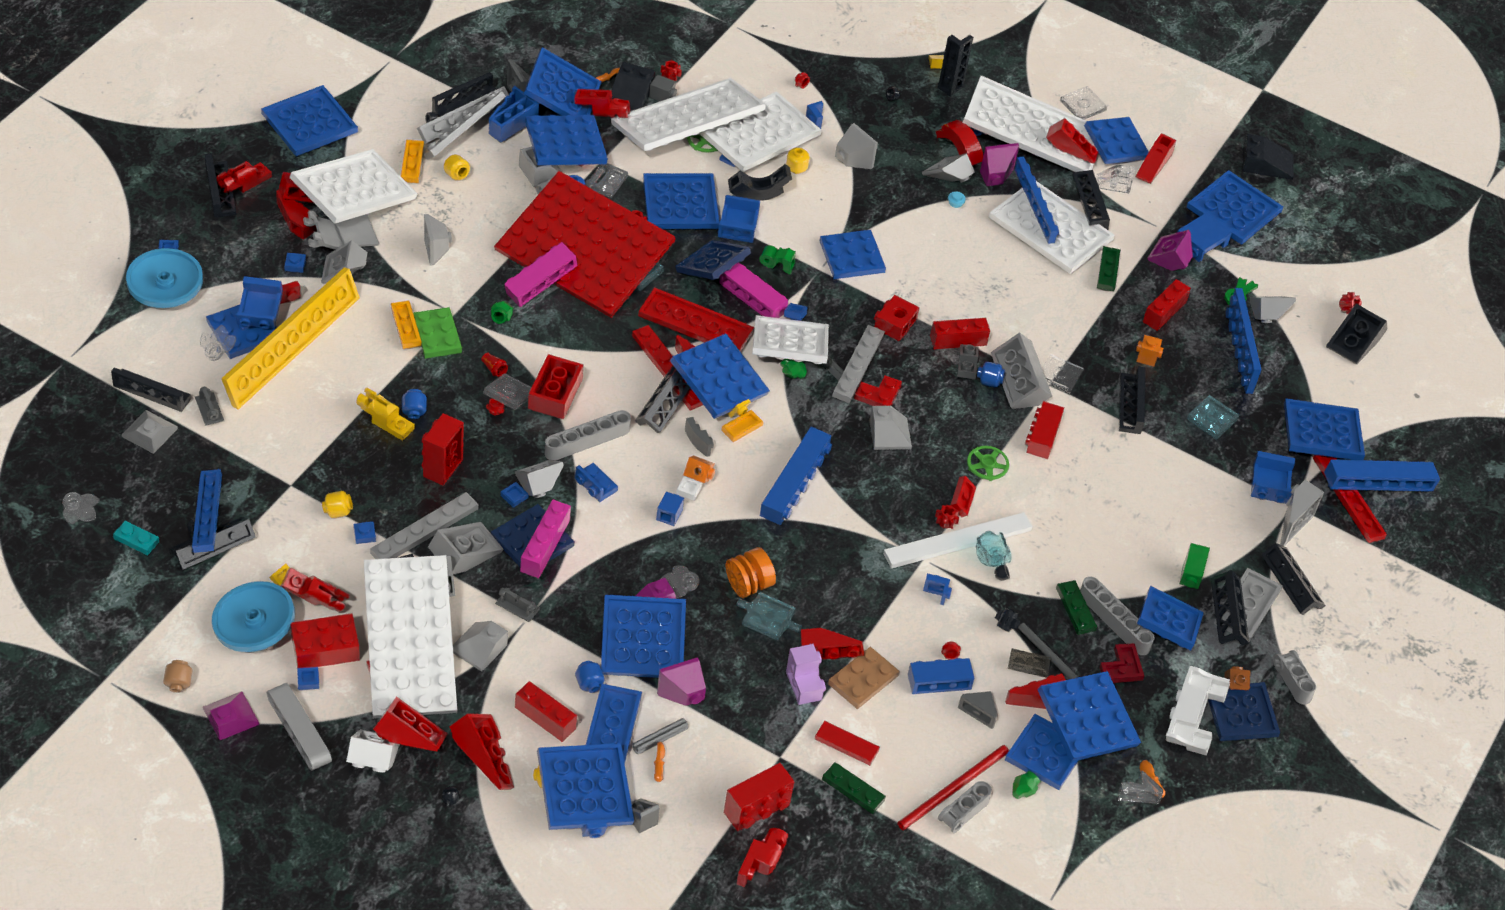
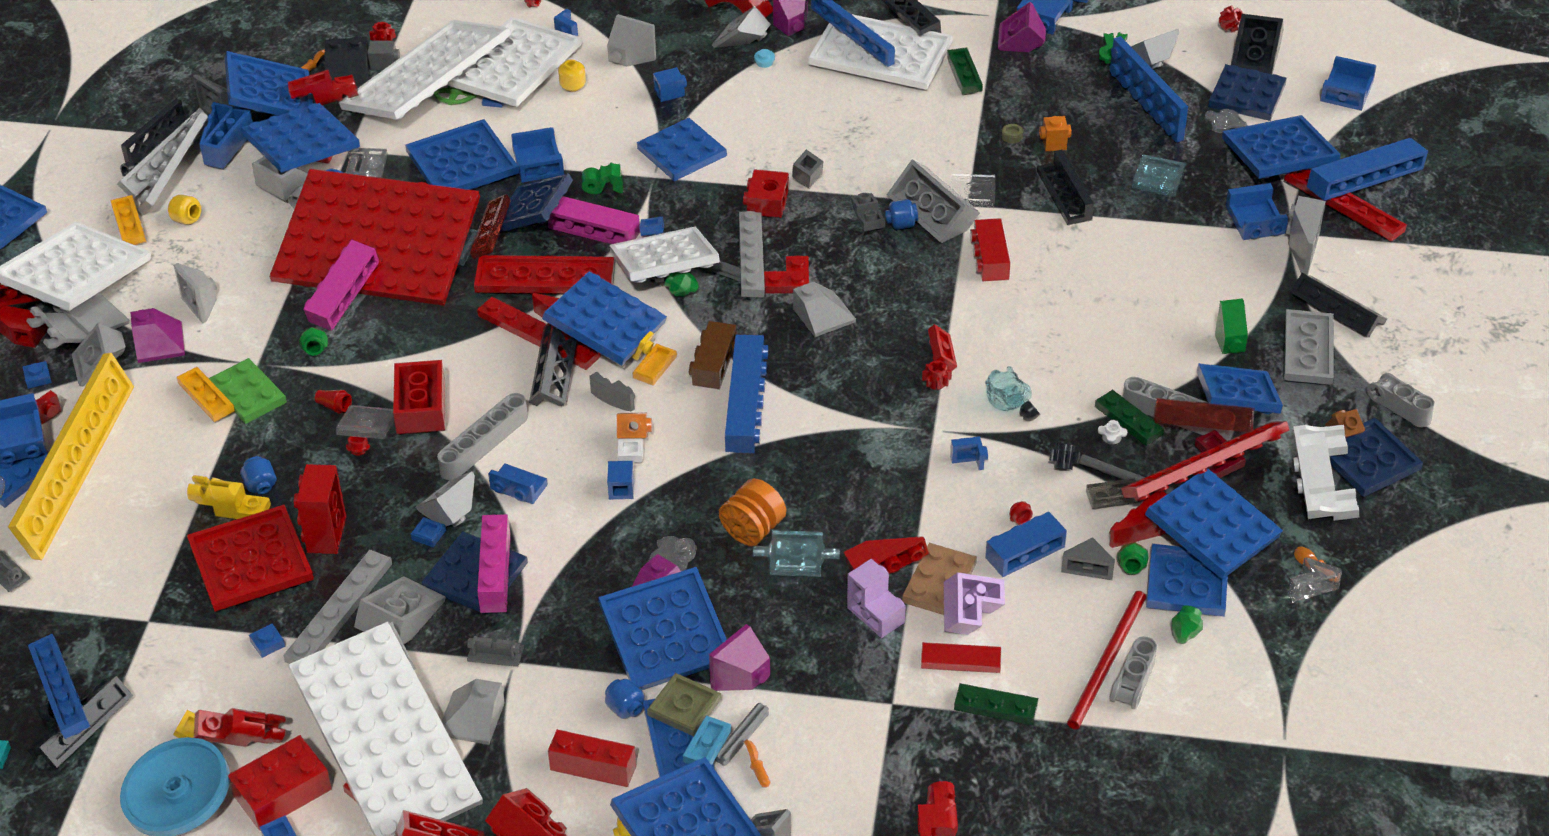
camera: 15 degrees left, 5 degrees down
(337, 504) = (218, 620): yellow head -> none
(380, 464) = (250, 557): none -> red plate
(392, 264) = (156, 335): none -> magenta slope
(628, 698) = (684, 704): none -> olive tile
(630, 732) = (707, 740): none -> dark azure plate
(673, 267) = (490, 226): none -> clear red tile
(758, 797) = (897, 755): red brick -> none
(760, 188) = (547, 115): black arch -> none
(787, 435) = (713, 355): none -> reddish brown brick
(870, 195) = (669, 84): none -> blue brick
(873, 699) = (967, 598): none -> lavender brick
(937, 308) = (807, 169): none -> dark grey brick
(954, 540) = (956, 398): white tile -> none
(962, 331) = (839, 186): red brick -> none
(988, 462) = (949, 305): bright green wheel -> none
(1014, 718) = (1133, 558): none -> green rock
(1056, 618) = (1112, 432): none -> white plate
(1103, 665) = (1198, 464): none -> red plate
(1117, 337) = (1012, 133): none -> olive tile
(1129, 629) = (1204, 415): none -> clear red tile
(1166, 305) = (1046, 83): red brick -> none
(1233, 604) = (1302, 351): black fence -> none
(1294, 389) = (1224, 120): none -> clear plate
(1327, 371) = (1247, 92): none -> dark blue plate
(1414, 395) = (1348, 83): none -> blue panel

